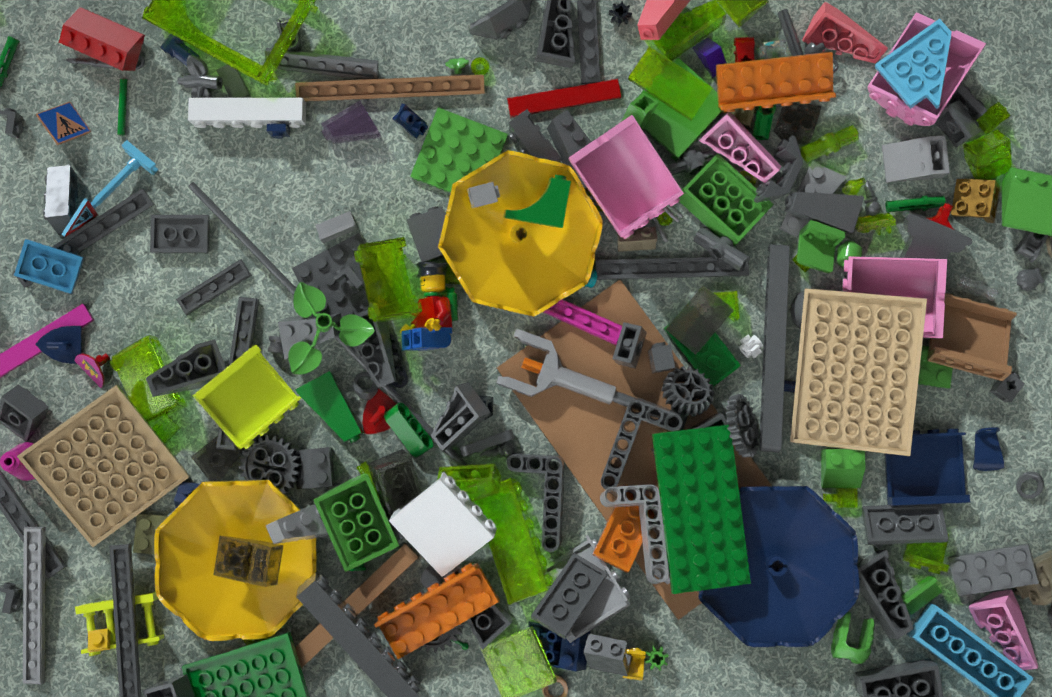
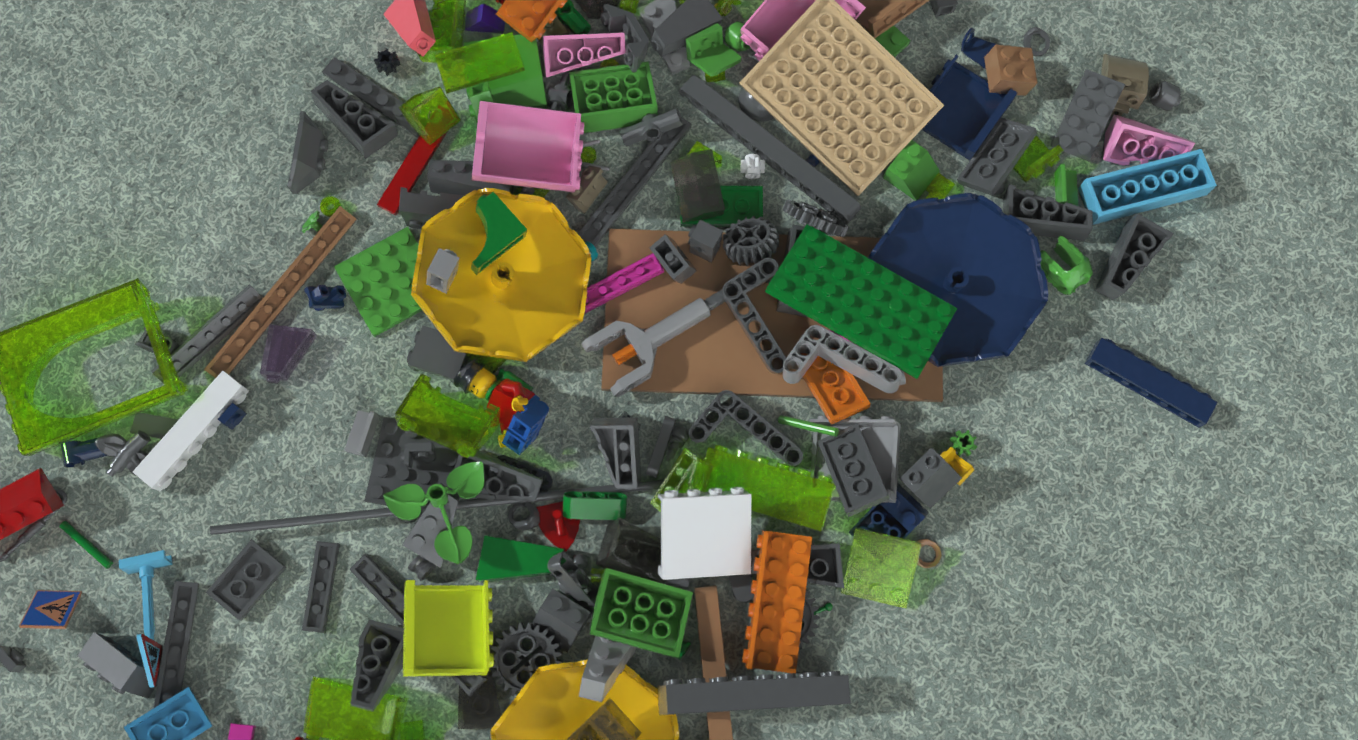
camera: 55 degrees left, 10 degrees down
(346, 455) = (573, 578): none -> dark grey piece
(581, 537) = (824, 429): none -> bright green bar
(602, 80) = (430, 114): none -> clear neon green slope
(986, 483) = (1010, 69): none -> medium nougat brick

